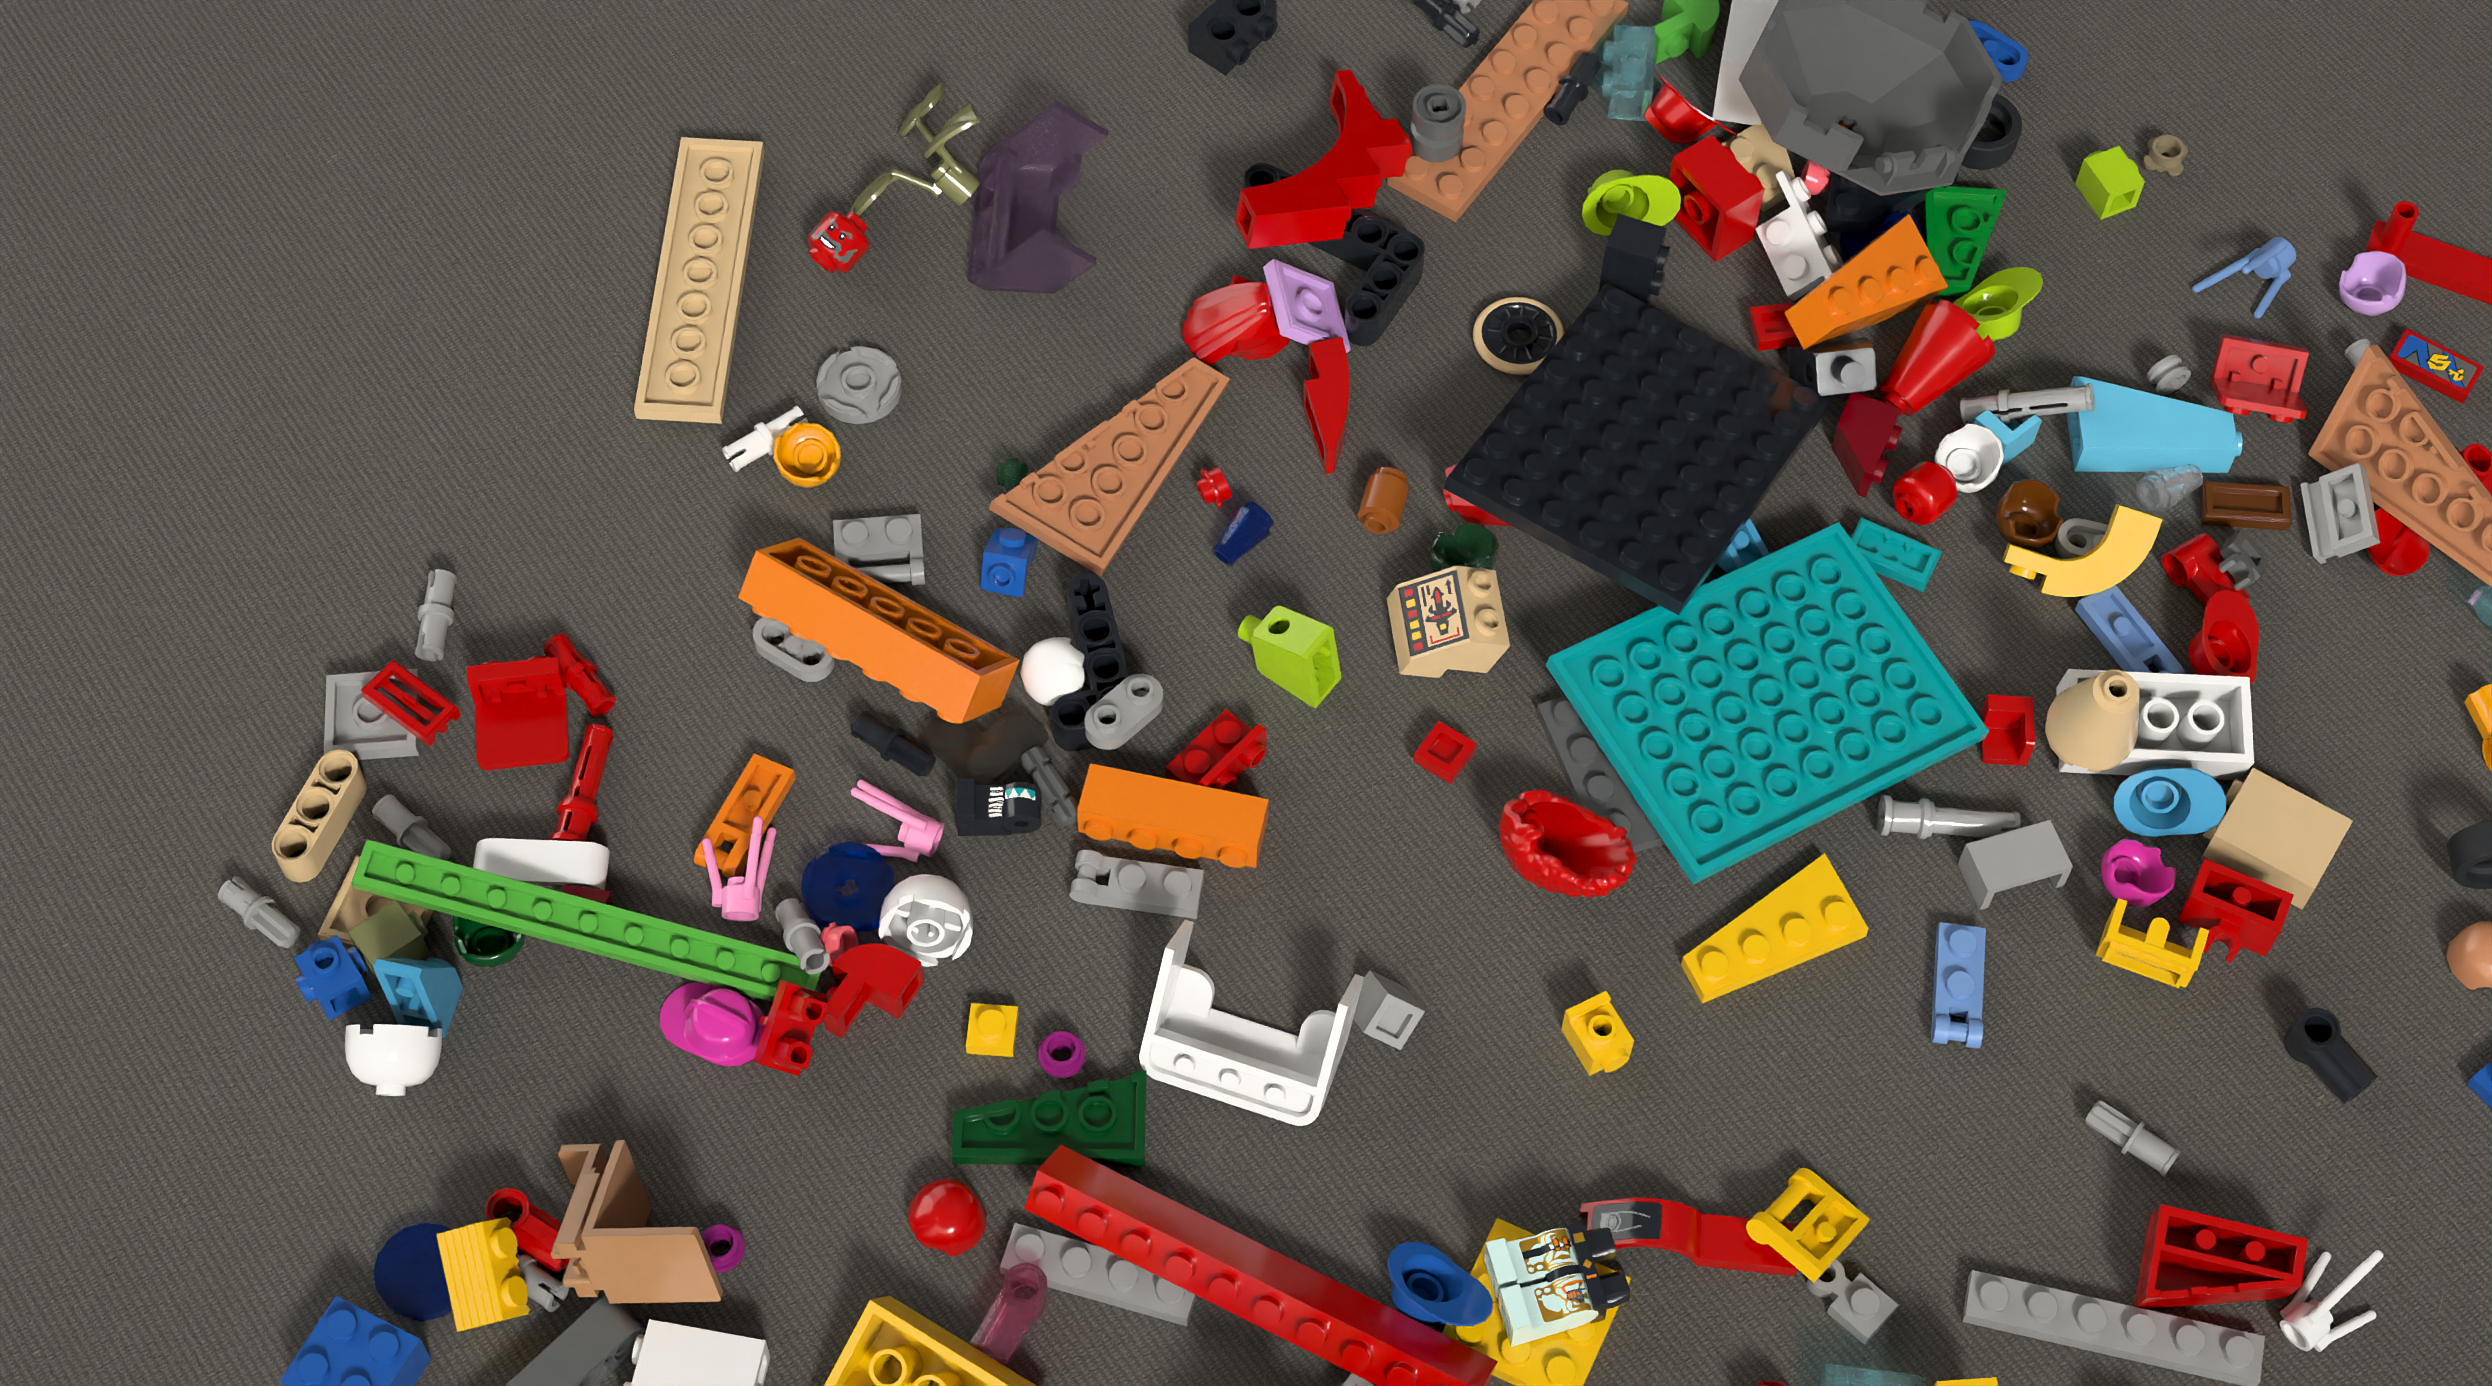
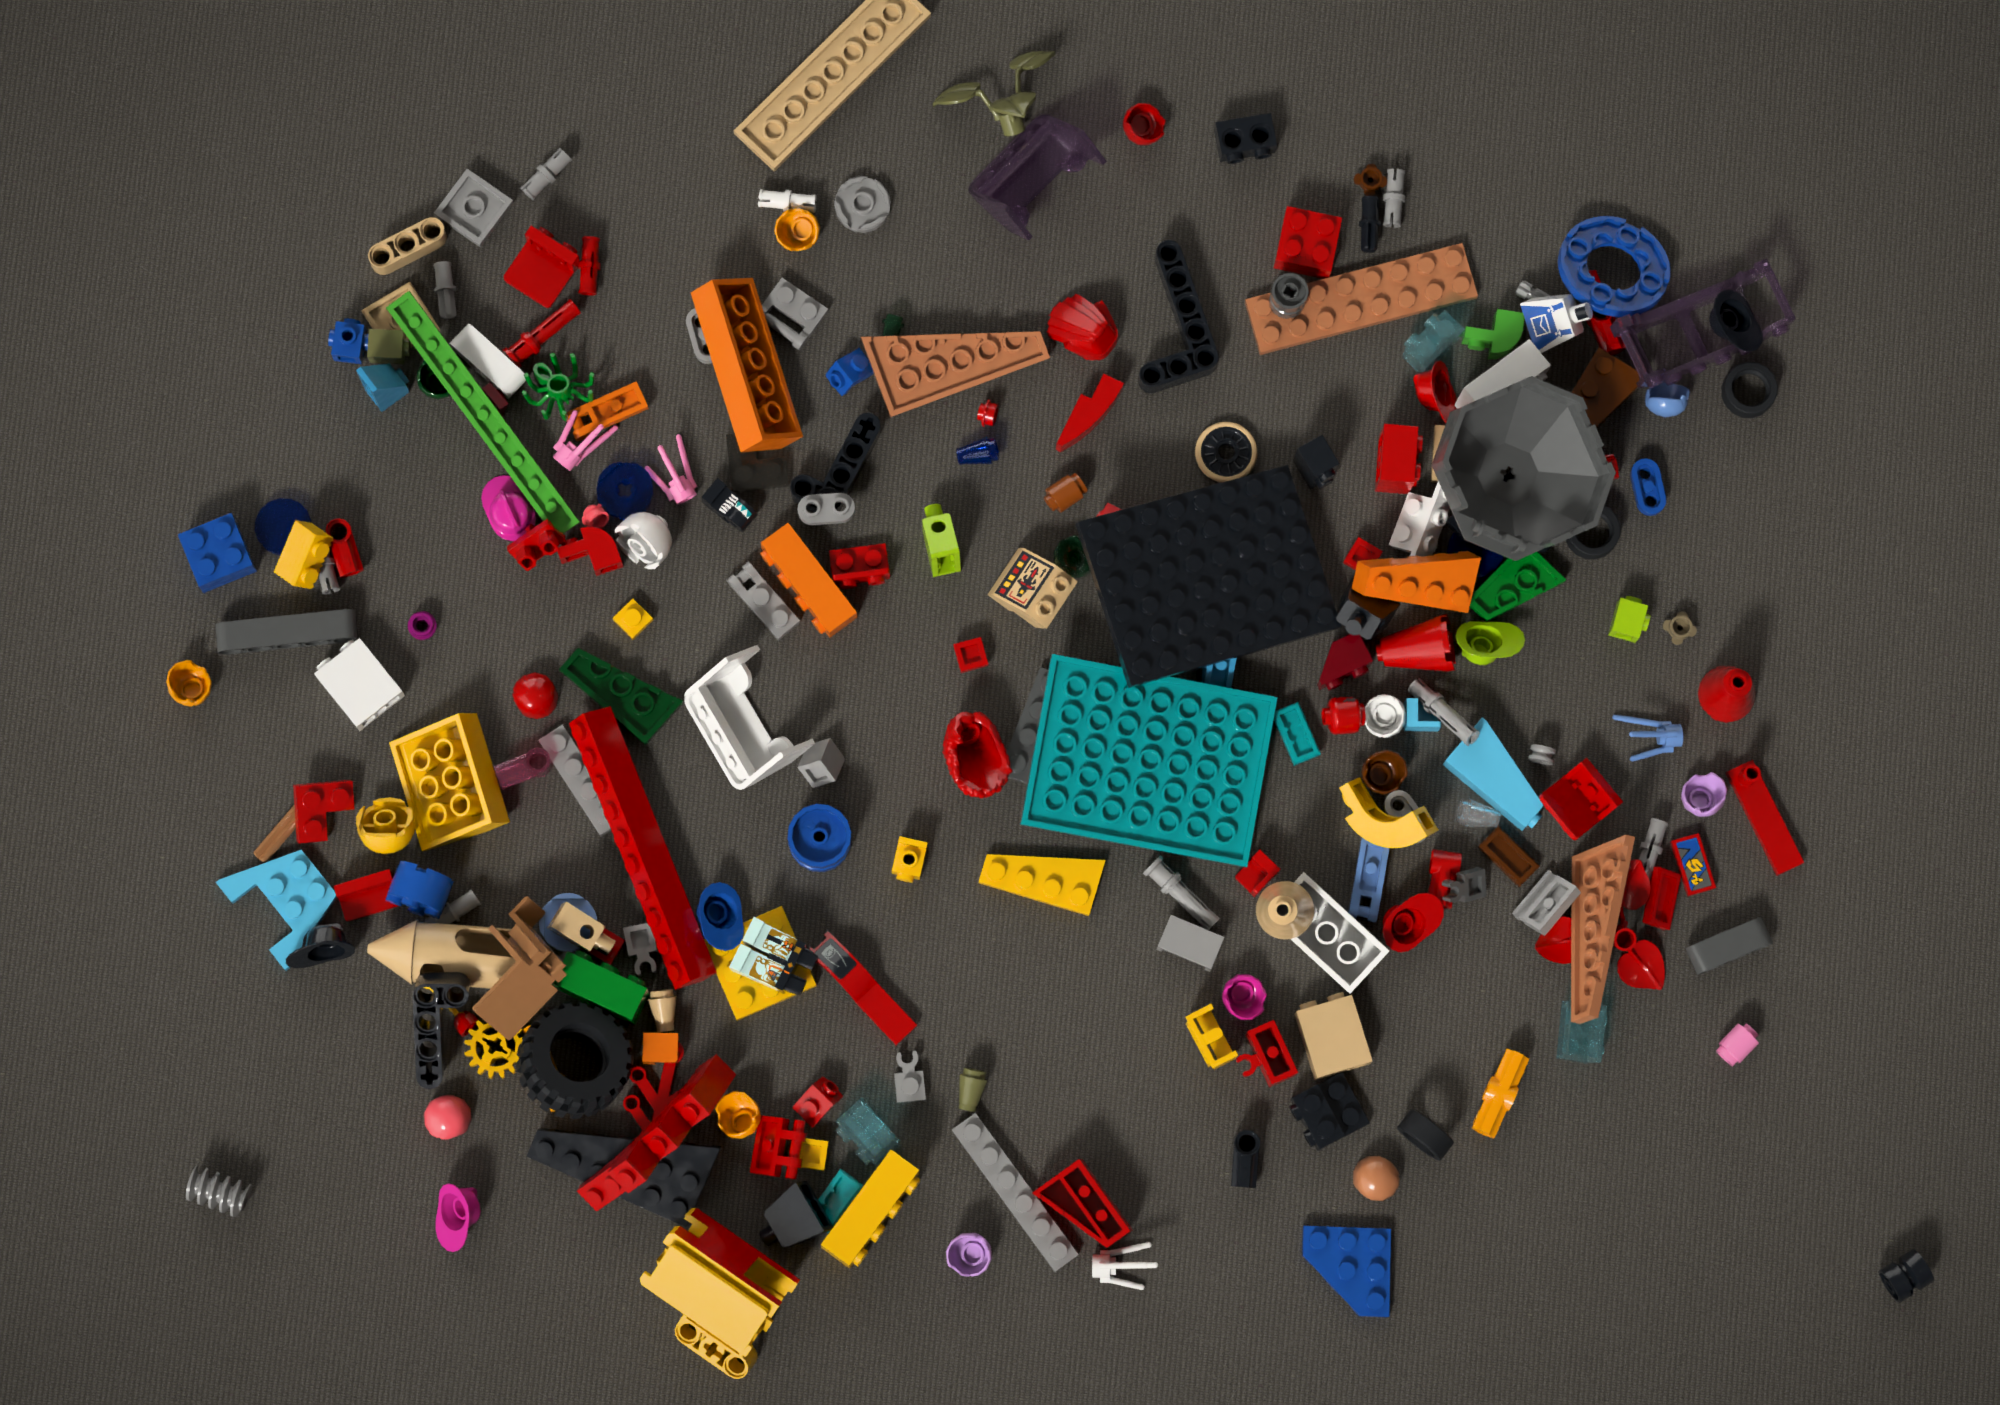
camera: 35 degrees right, 20 degrees up
(259, 912) = (342, 276): light grey axle -> none
(392, 1055) = (346, 406): white cylinder -> none
(435, 723) = (498, 242): red tile -> none
(609, 1239) = (370, 580): medium nougat piece -> none
(658, 828) = (557, 386): none -> green animal
(802, 936) = (580, 500): light grey pin -> none
(838, 241) = (917, 110): red head -> none
(892, 744) = (709, 429): black axle -> none
(1051, 784) = (766, 513): dark grey axle -> none
(1052, 670) = (815, 455): white hair -> none
(1056, 1043) = (653, 650): magenta plate -> none
(1109, 88) = (1143, 124): none -> red hair
(1304, 304) = (1123, 349): lavender tile -> none
(1320, 198) = (1171, 297): red arch -> none
(1397, 66) = (1307, 242): none -> red brick
(1469, 1093) = (819, 855): none -> blue wheel
(1573, 88) = (1396, 325): black axle -> none
(1639, 197) = (1352, 420): lime piece -> none
(1820, 1235) = (921, 1038): yellow plate -> none
(1938, 1244) = (971, 1087): none -> olive cone
(1958, 984) = (1107, 976): medium blue plate -> none
(2132, 1137) = (1113, 1116): light grey axle -> none
(2169, 801) = (1293, 974): dark azure piece -> none
(2285, 167) = (1726, 693): none -> red cone
(2358, 927) = (1328, 1112): none -> black plate
(2447, 415) = (1662, 898): none -> red tile

